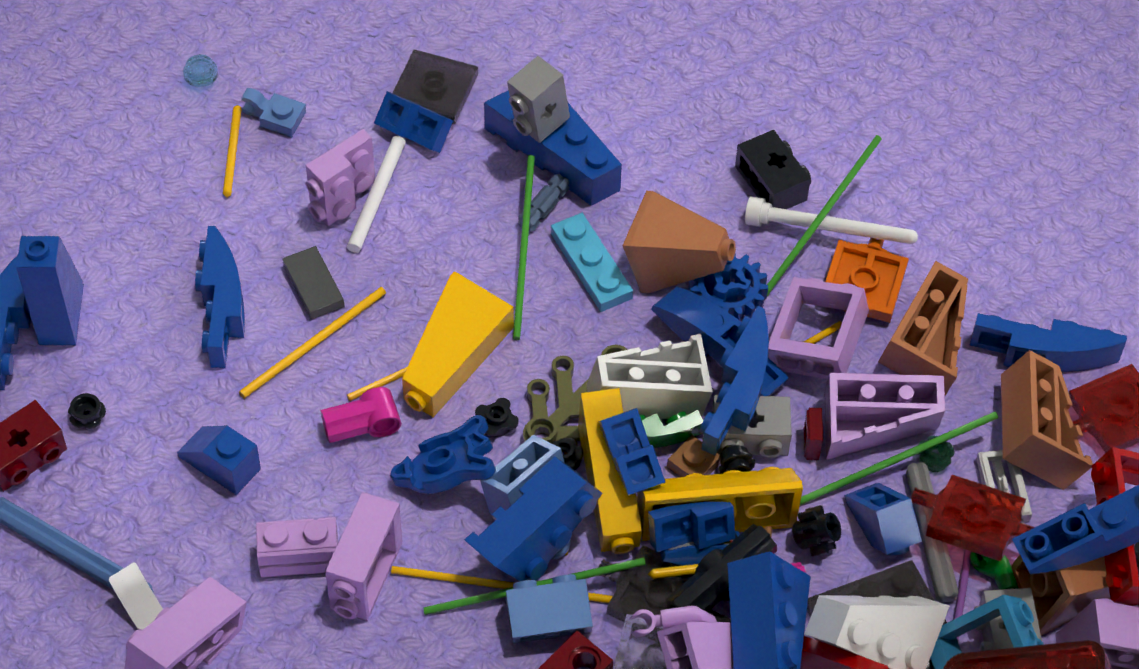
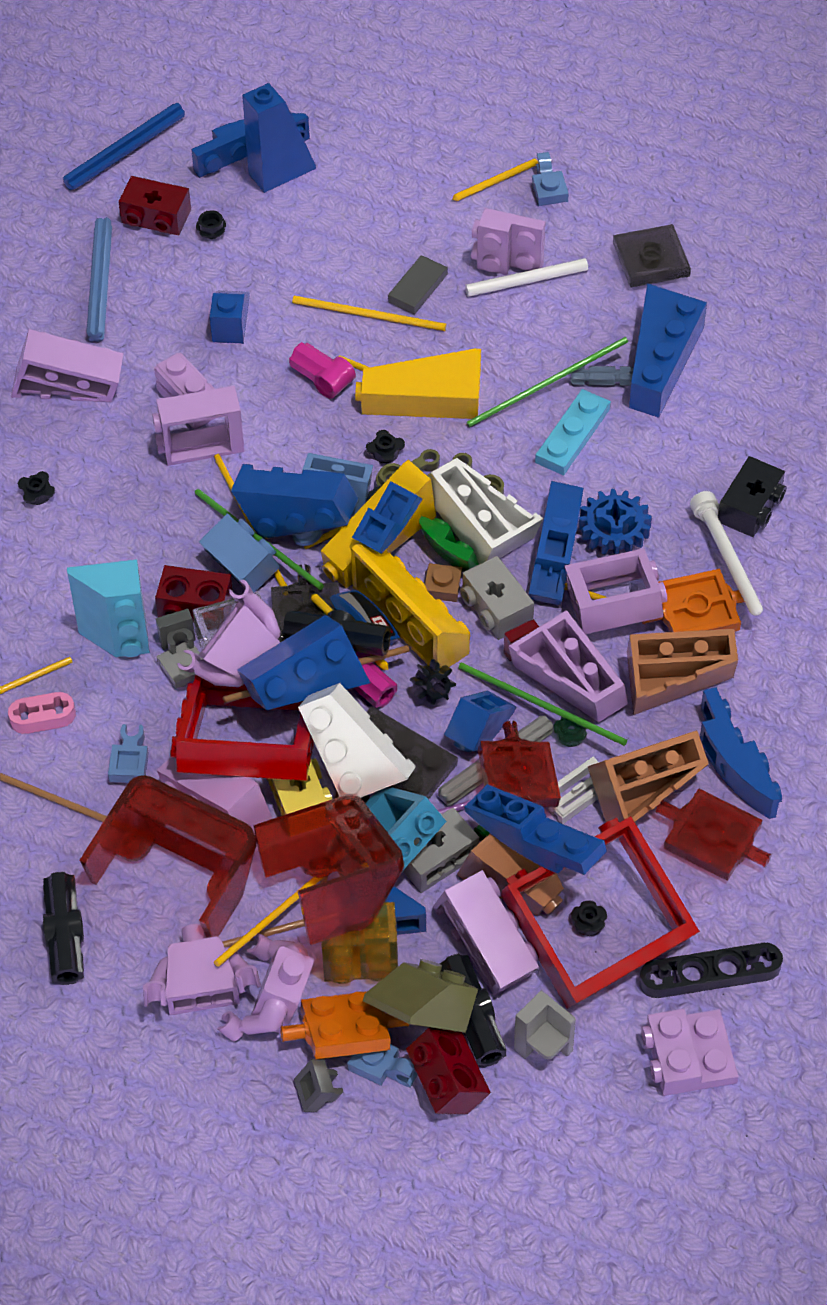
camera: 60 degrees right, 0 degrees up
(136, 595) = (87, 323): white sticker -> none
(200, 71) = (547, 122): clear light blue plate -> none
(221, 296) = (368, 237): blue slope -> none
(413, 121) = (606, 258): blue slope -> none
(448, 460) = (320, 435): blue tile -> none
(538, 99) = (655, 300): light grey brick -> none
(674, 244) = (607, 456): nougat slope -> none
(691, 522) = (364, 590): blue slope -> none
(736, 458) = (458, 604): black plate -> none
(742, 381) = (523, 557): blue slope -> none
(828, 206) = (732, 541): bright green axle -> none

